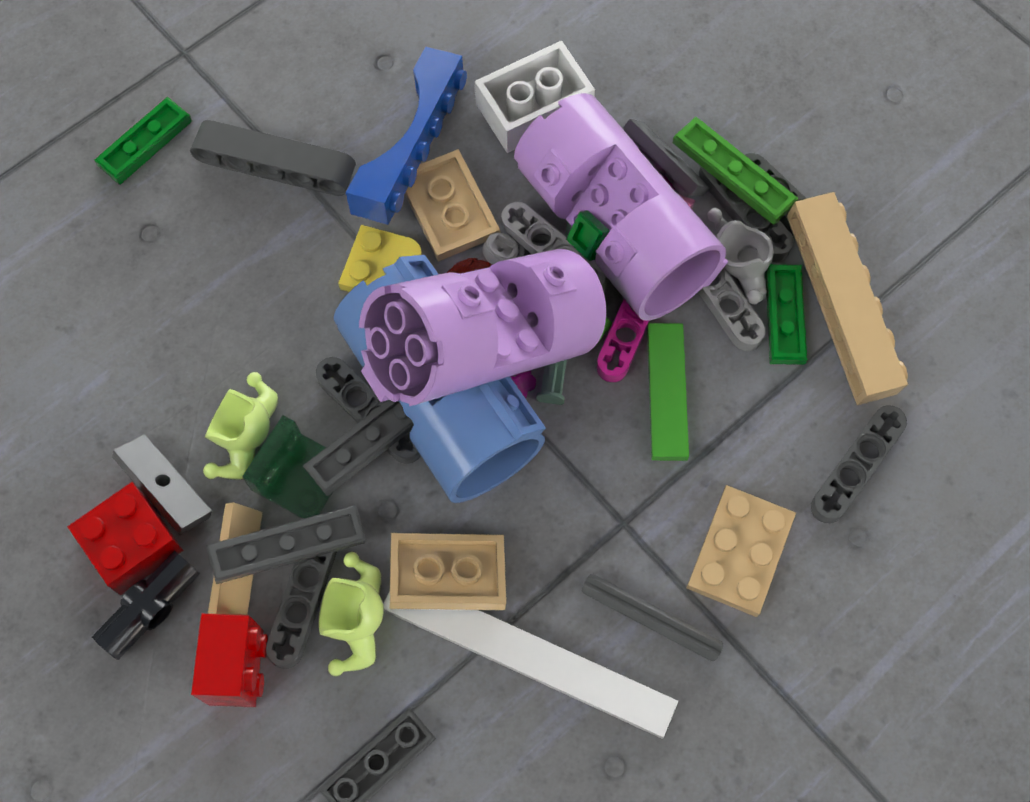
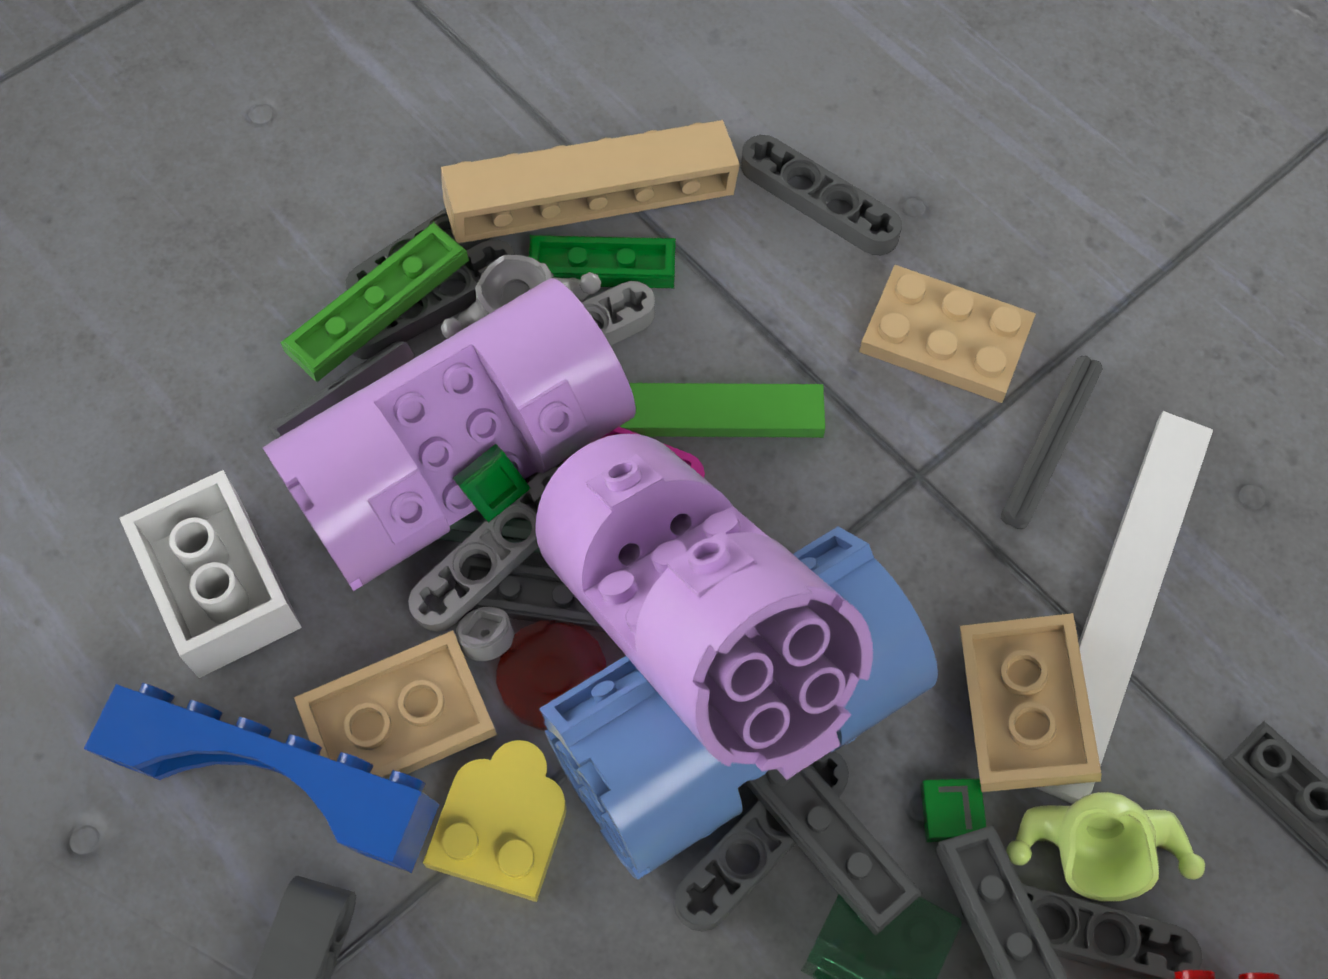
camera: 90 degrees left, 5 degrees down
(380, 523) = (951, 808): none -> green tile

